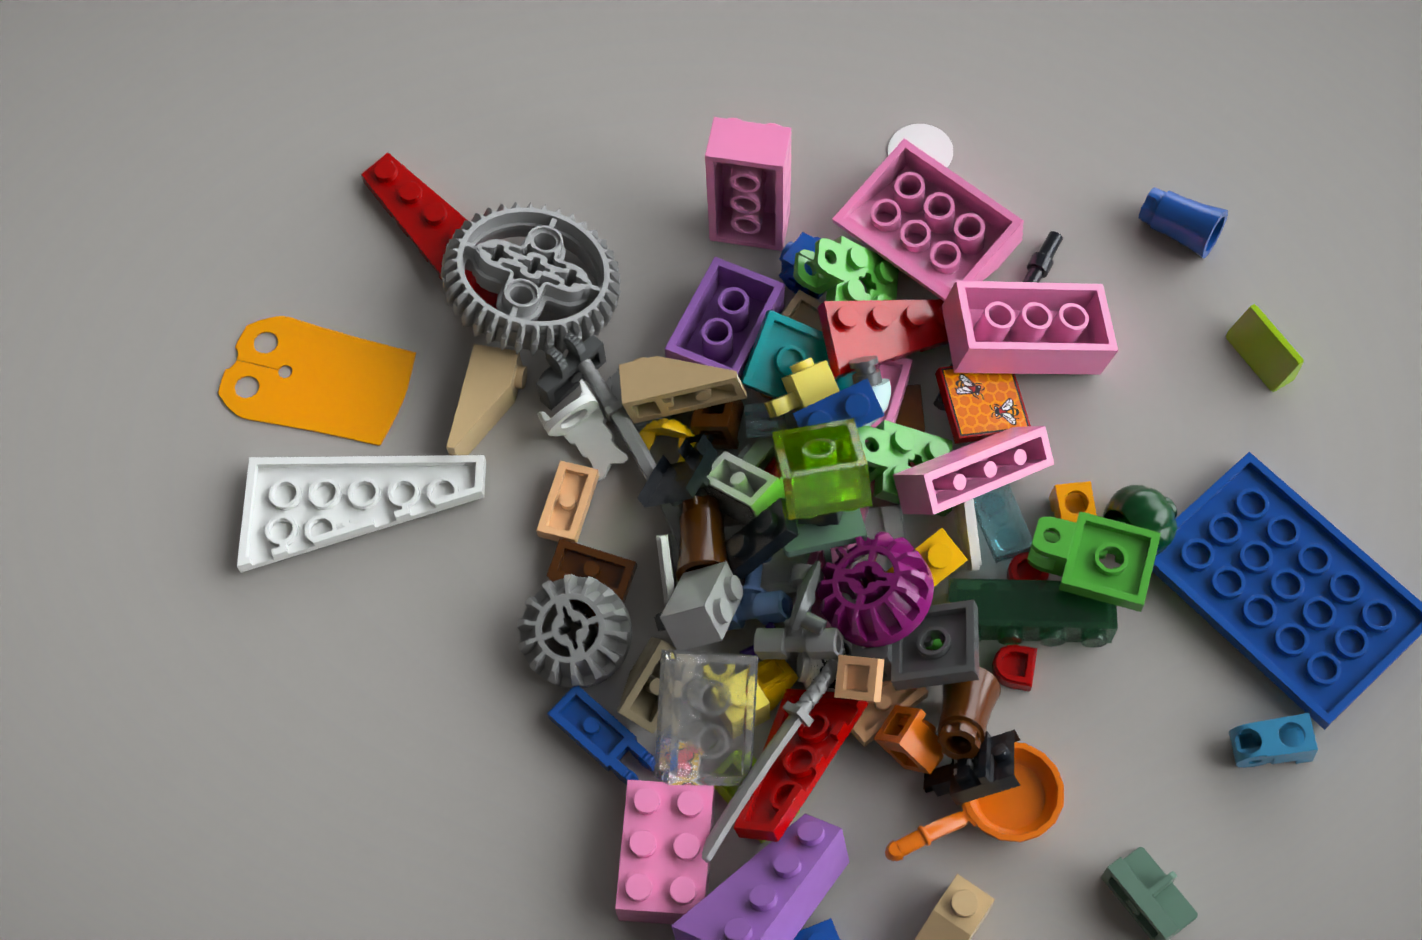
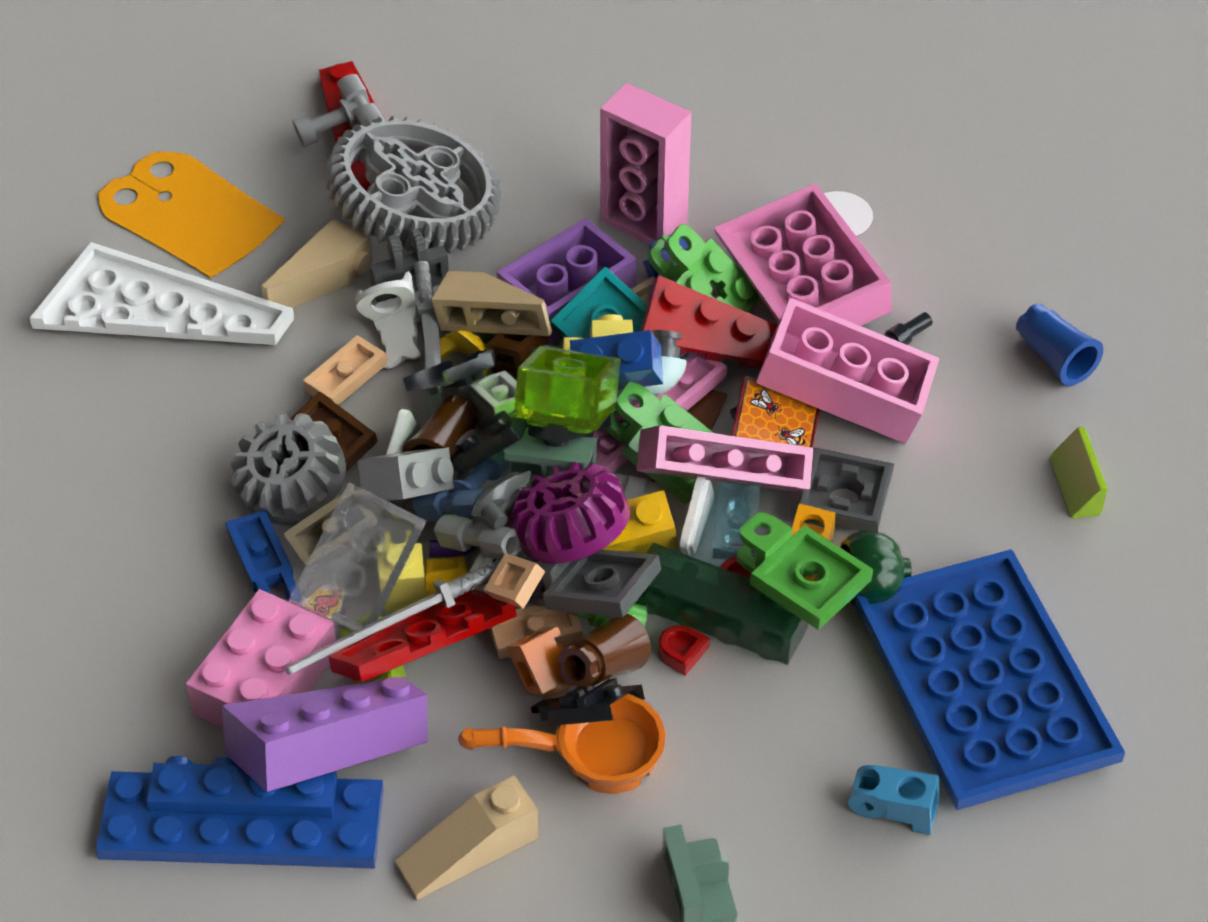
camera: 20 degrees right, 15 degrees down
(425, 212) = (354, 110): none -> light grey bar
(1095, 430) = (862, 475): none -> dark grey piece

